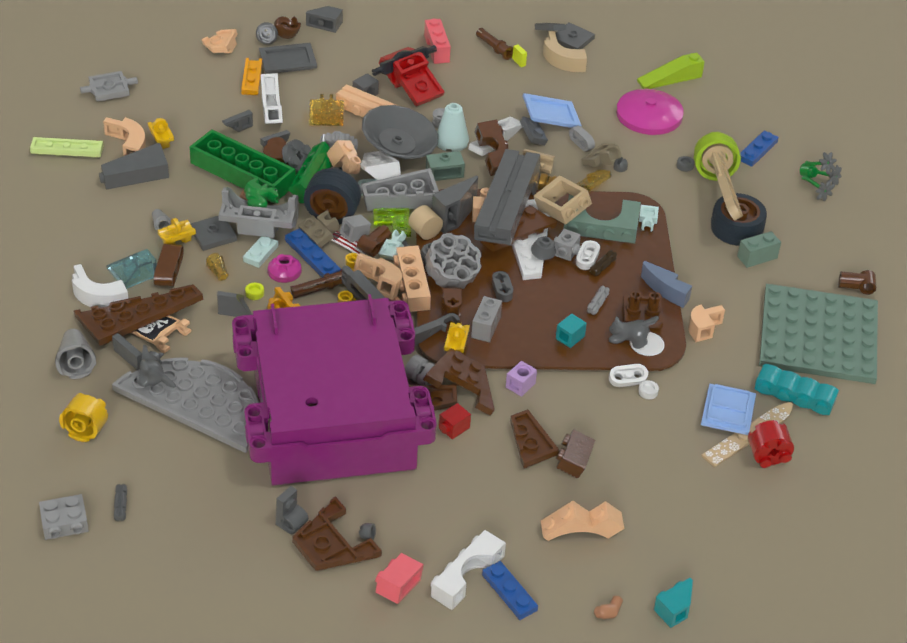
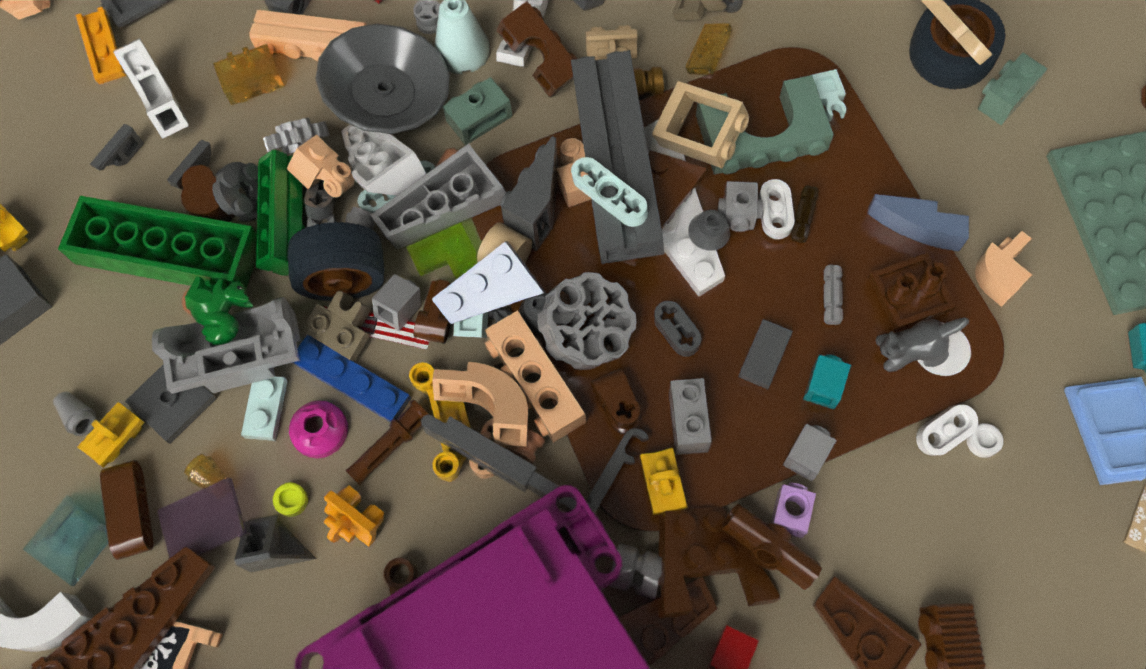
camera: 15 degrees left, 25 degrees up
(208, 279) = (203, 519): none -> piece
(408, 229) = (488, 285): none -> wing
(487, 194) = (613, 204): none -> light aqua beam
(500, 384) = (771, 546): none -> reddish brown piece
(543, 354) = (810, 451): none -> light grey brick
(545, 312) = (765, 354): none -> dark grey tile

